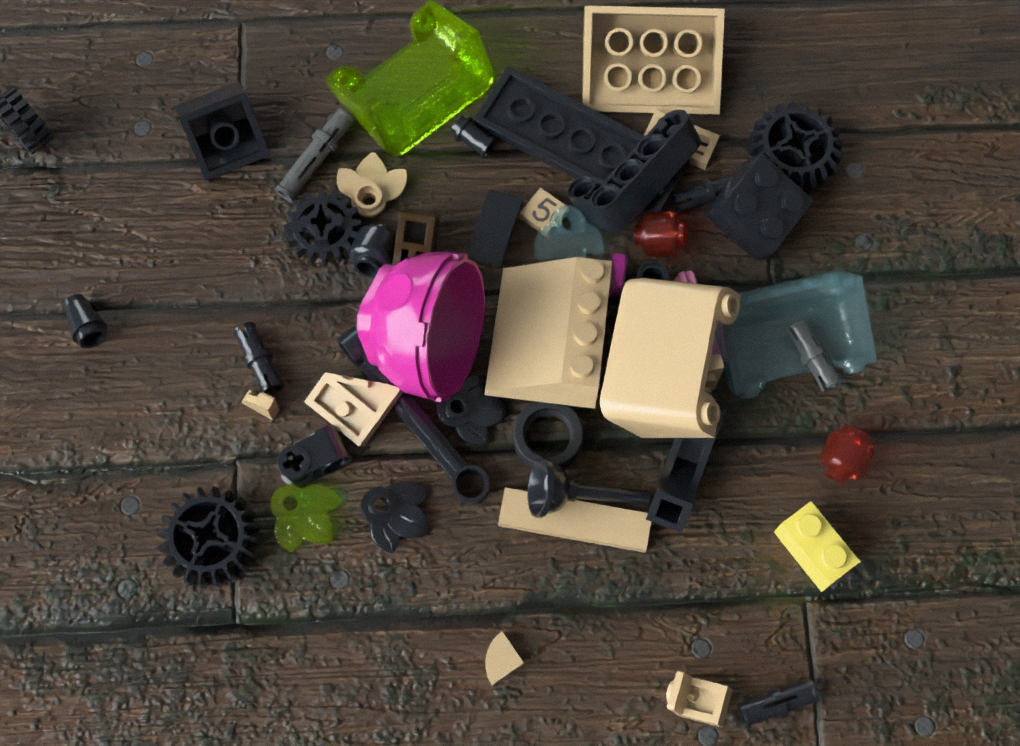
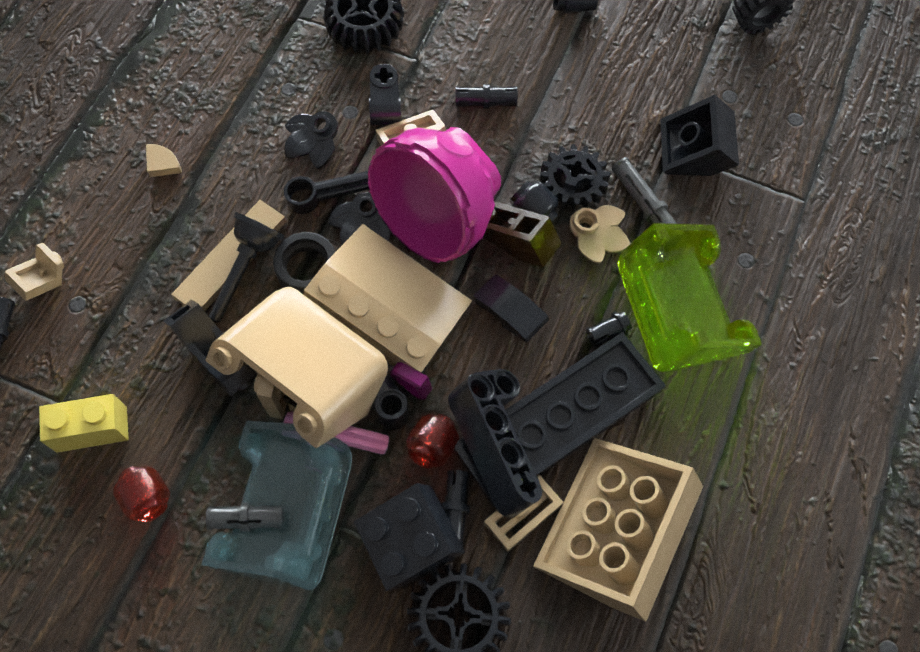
camera: 115 degrees right, 5 degrees down
(261, 403) = (446, 82): tan tile -> none
(309, 517) = (345, 82): clear neon green plate -> none
(539, 210) = (508, 354): tan tile -> none
(563, 243) = (465, 357): clear light blue plate -> none

